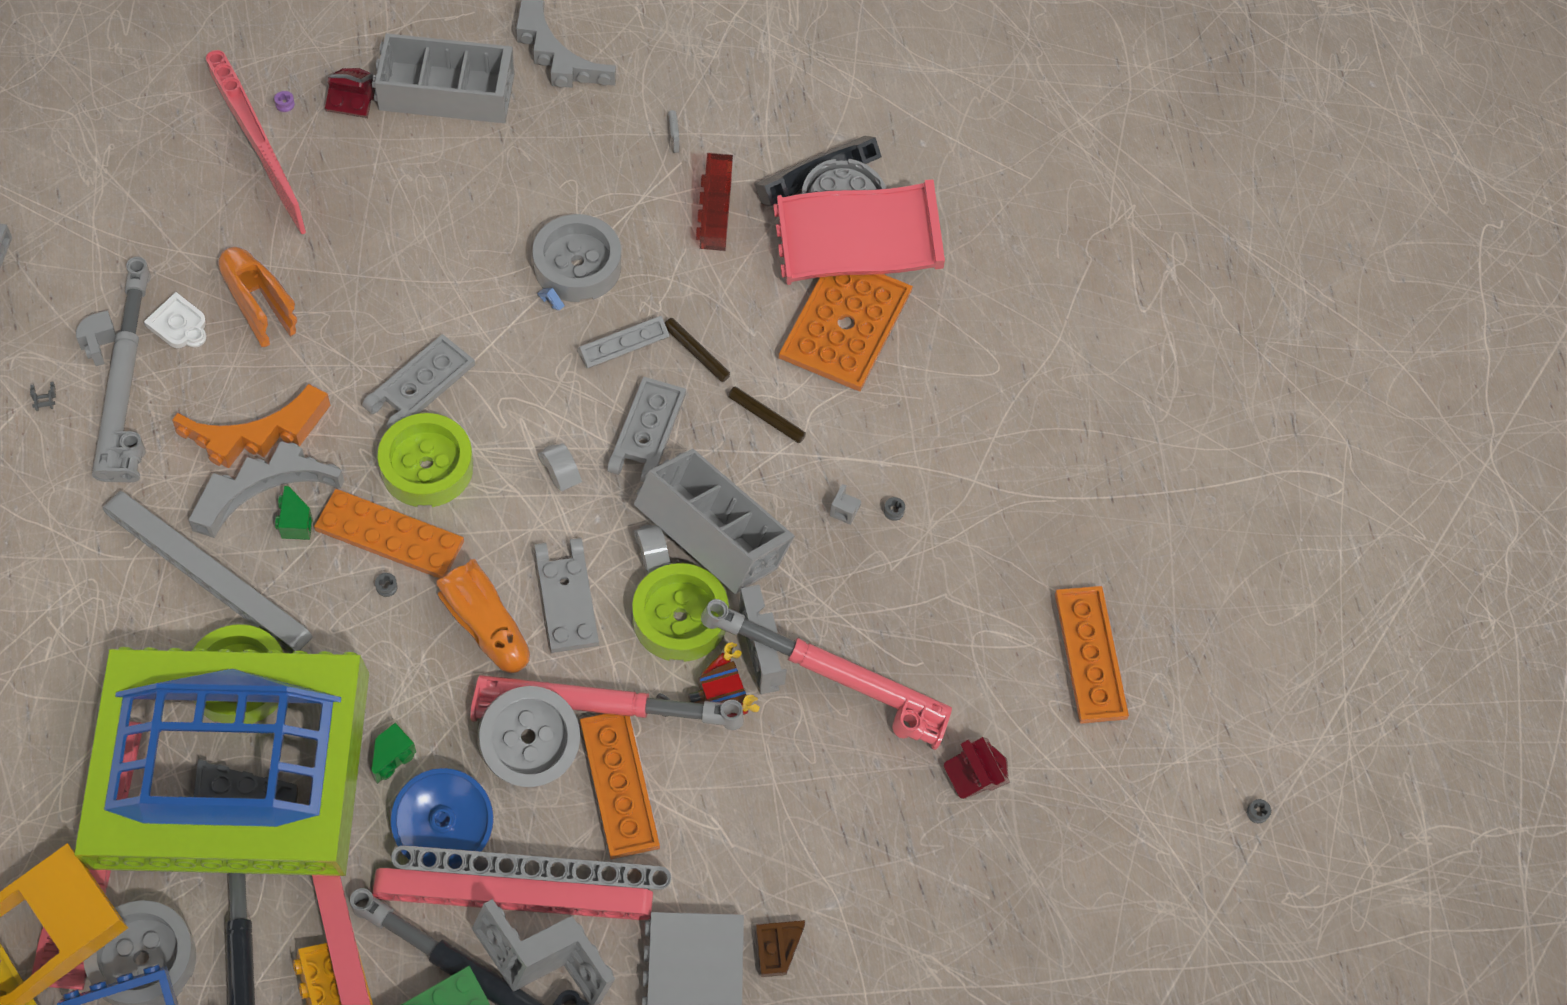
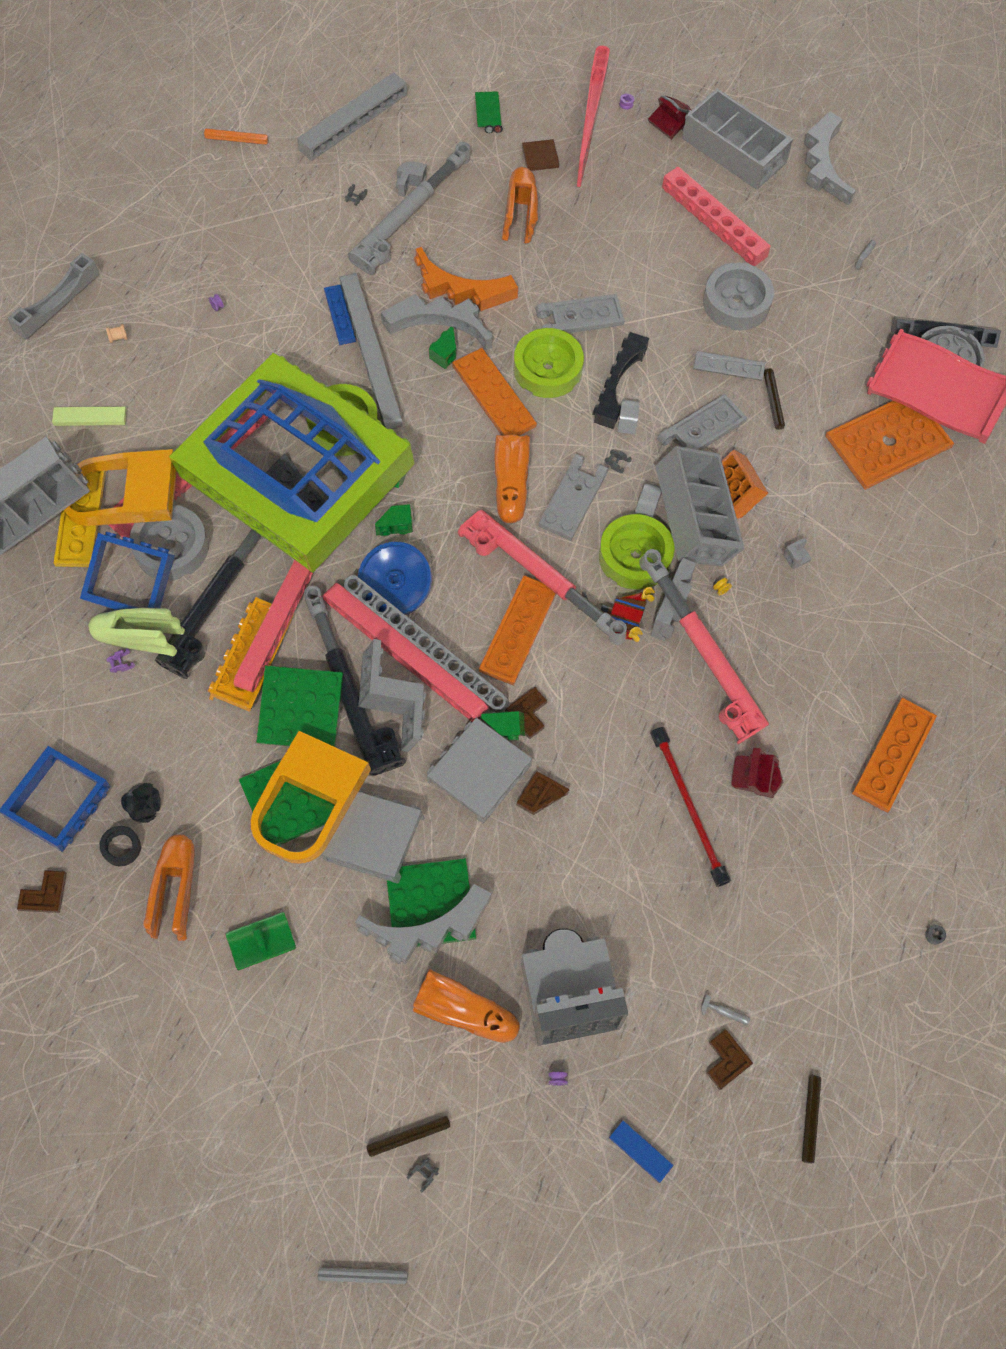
camera: 40 degrees right, 5 degrees up
(129, 202) = (488, 111): none -> green piece
(135, 552) = (339, 314): none -> blue tile
(178, 323) = (463, 196): white plate -> none
(231, 221) = (540, 155): none -> reddish brown tile
(391, 589) = (468, 418): dark grey bush -> none
(484, 180) = (716, 216): none -> coral brick
(532, 472) = (608, 409): none -> black arch
(550, 295) = (702, 309): medium blue tile -> none
(554, 742) = (462, 559): light grey brick -> none
(581, 517) = (620, 456): none -> dark grey piece
(686, 896) = (506, 724): none -> green slope
(690, 871) = (529, 705): none -> reddish brown tile
(715, 202) = (857, 312): clear red wedge -> none
(737, 462) = (743, 483): none -> orange wedge
(767, 414) = (789, 466): dark brown axle -> none
(796, 591) = (722, 586): none -> yellow bush
(899, 503) = (830, 583): dark grey bush -> none
(1016, 898) = (719, 873): none -> red hose

